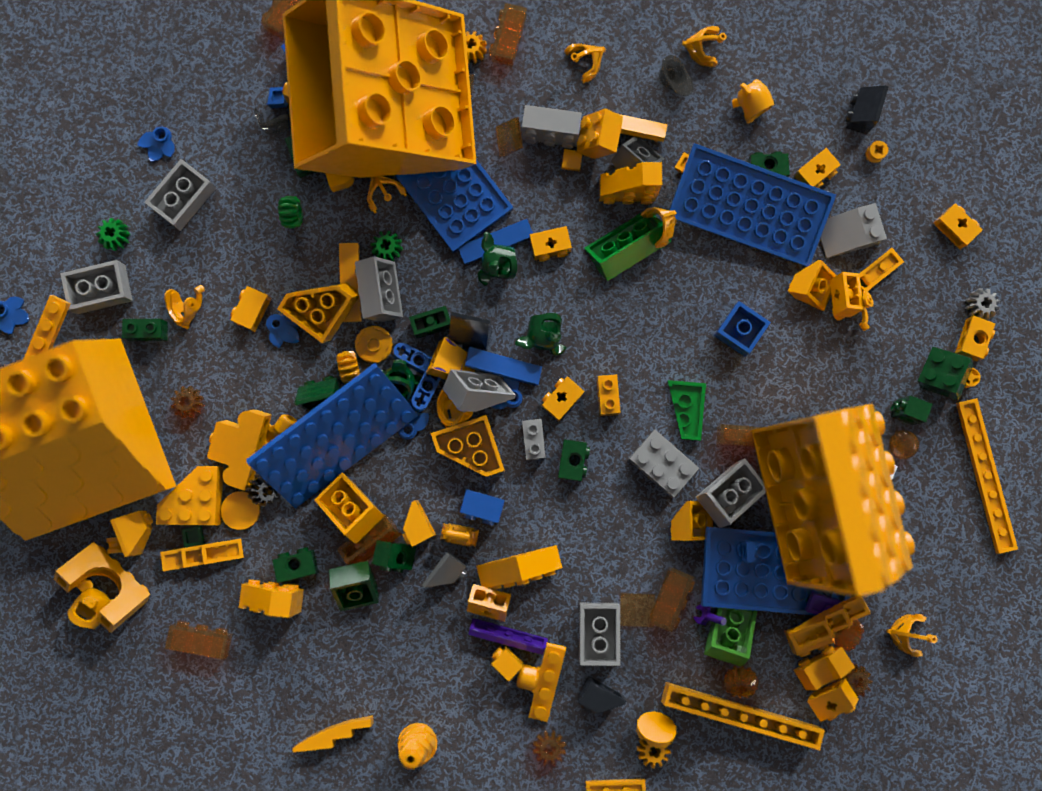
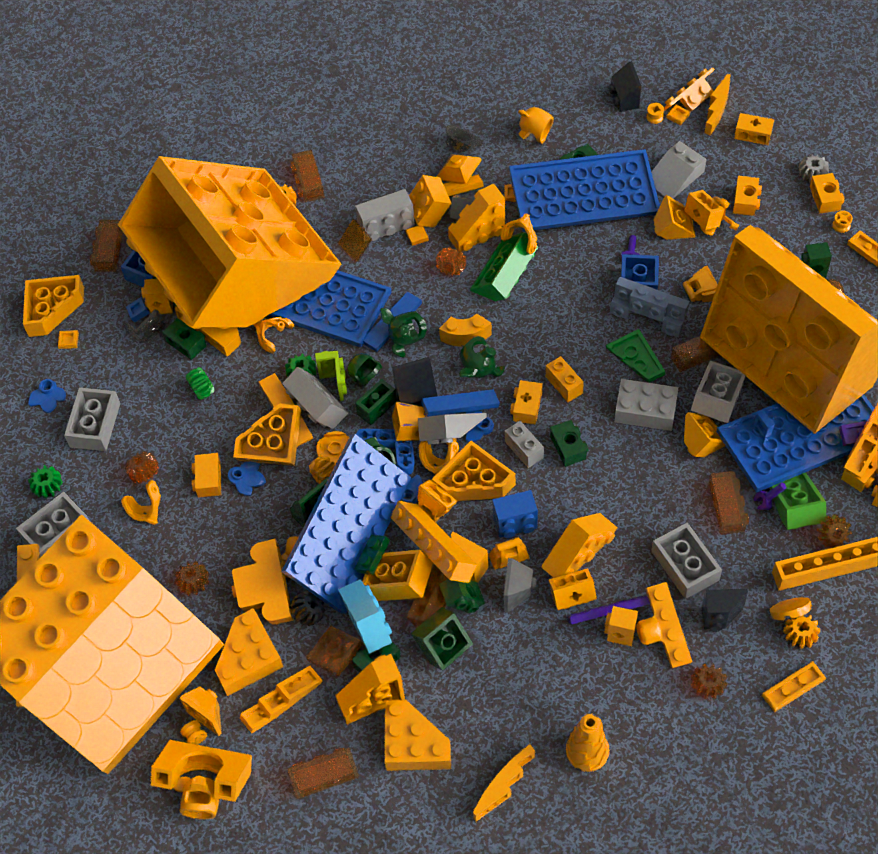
camera: 25 degrees left, 25 degrees down
(144, 329) = (124, 535): dark green brick -> none
(192, 536) = (261, 687): dark green tile -> none
(199, 269) = (142, 467): none -> clear orange gear
(203, 46) = (50, 302): none -> light orange brick
(204, 92) = (68, 339): none -> light orange tile
(239, 511) = (294, 642): light orange tile -> none
(265, 540) = (334, 651): none -> clear orange plate
(283, 656) = (413, 740): none -> light orange brick
(300, 532) = (366, 615): none -> medium azure brick
(340, 475) = (372, 554): none -> dark green plate
(394, 499) = (433, 542): none -> light orange brick
(417, 271) = (330, 366): none -> lime bracket
(424, 451) = (434, 500): none -> light orange piece
(439, 279) = (363, 368): none -> dark green helmet
(550, 294) = (460, 331): none -> light orange brick
(558, 237) = (439, 297): light orange brick -> none
(582, 211) = (451, 261): none -> clear orange gear
(597, 53) = (386, 154): light orange helmet -> none
(636, 609) = (707, 529): clear orange piece -> none
(652, 107) = (458, 168): none -> light orange slope
(696, 42) = (472, 118): light orange helmet -> none
(730, 367) = (649, 303): none -> sand blue bracket
(754, 292) = (631, 246): none -> dark purple bar
(795, 372) = (703, 283): none -> light orange piece
(825, 163) = (620, 141): light orange brick -> none
(880, 268) = (718, 182): light orange hinge -> none
(898, 165) = (678, 114): none -> light orange tile
(907, 290) = (746, 195): none -> light orange brick
(928, 150) = (694, 94): none -> light orange bracket
(944, 175) = (717, 105): none -> light orange slope
(945, 373) = (822, 222): dark green brick -> none

